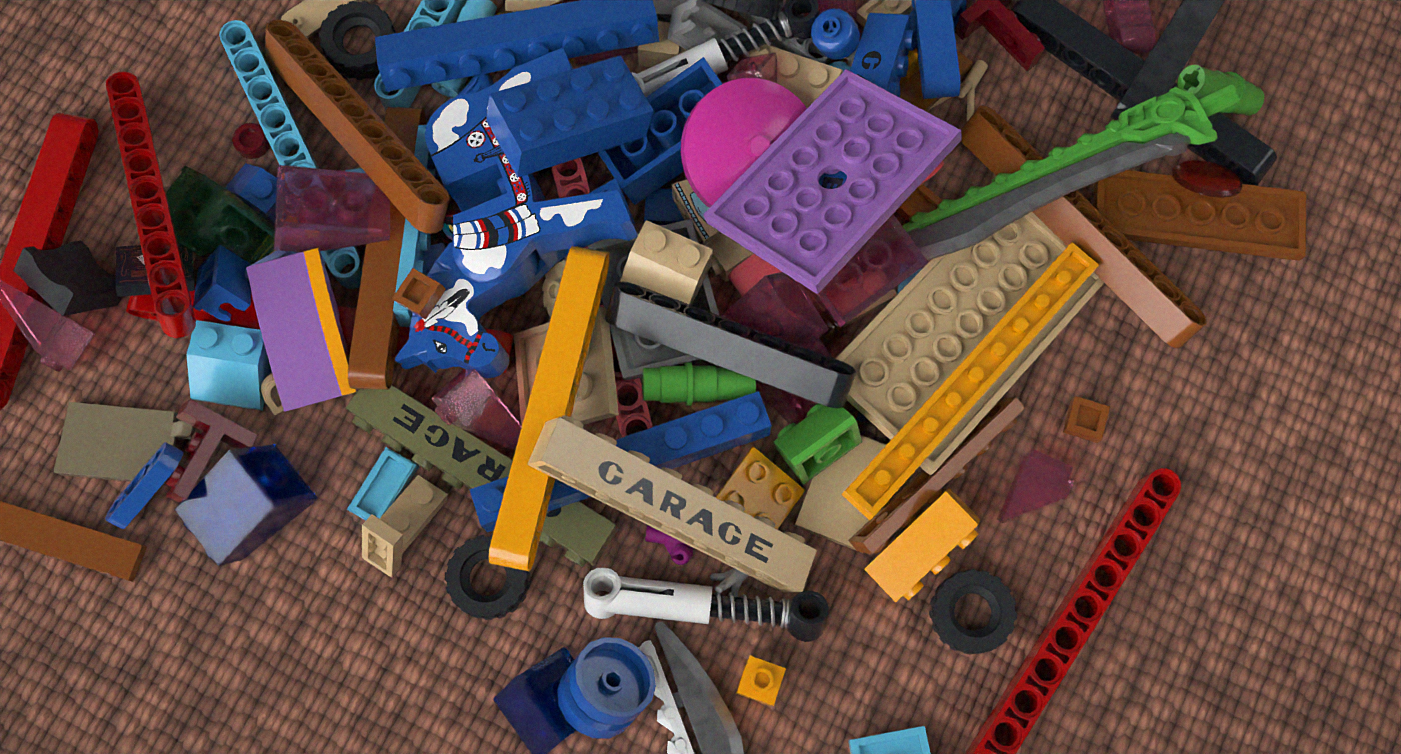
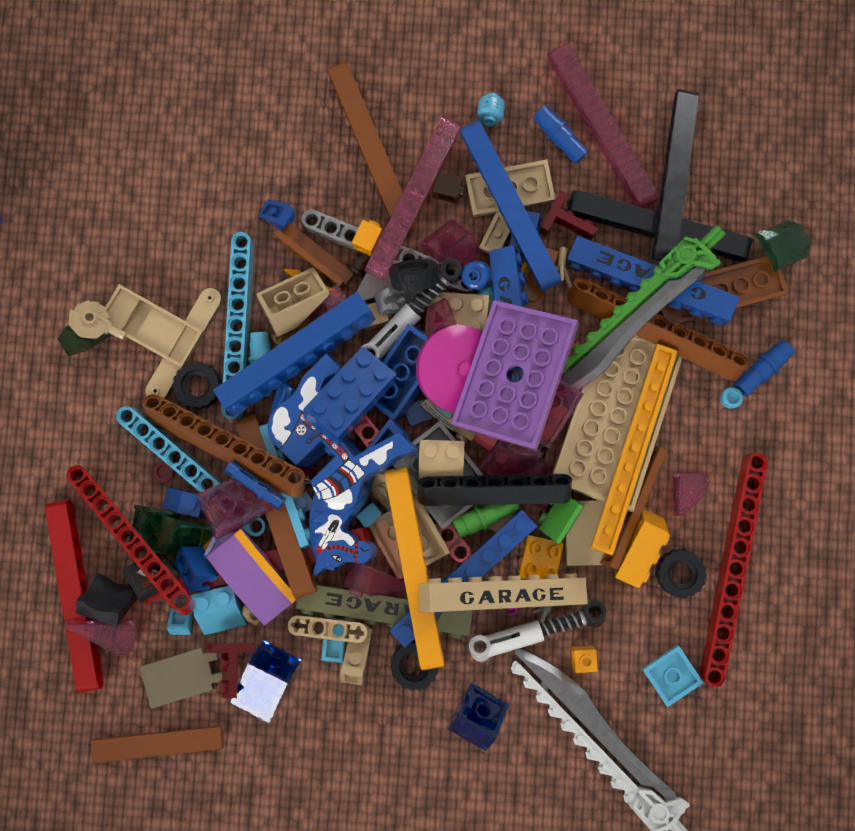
camera: 15 degrees left, 10 degrees up
(144, 485) = (207, 697): blue beam -> none
(163, 363) = (179, 624): none -> medium azure slope
(376, 202) = (262, 490): none -> blue pin
(378, 465) = (328, 631): none -> tan beam
(419, 293) = (311, 534): dark orange plate -> none
(522, 317) = (369, 515): none -> medium azure slope
(606, 688) = (506, 699): blue wheel -> none
(1059, 119) = (629, 271): none -> blue brick
(1086, 419) = (701, 439): dark orange plate -> none
(1157, 377) = (731, 397): none -> medium azure tile
(1205, 81) = (708, 214): bright green piece -> none
(1207, 178) = (724, 273): clear red piece -> none
(1228, 350) = (764, 367): none -> blue piece
(1325, 182) = (784, 244): none -> clear green slope

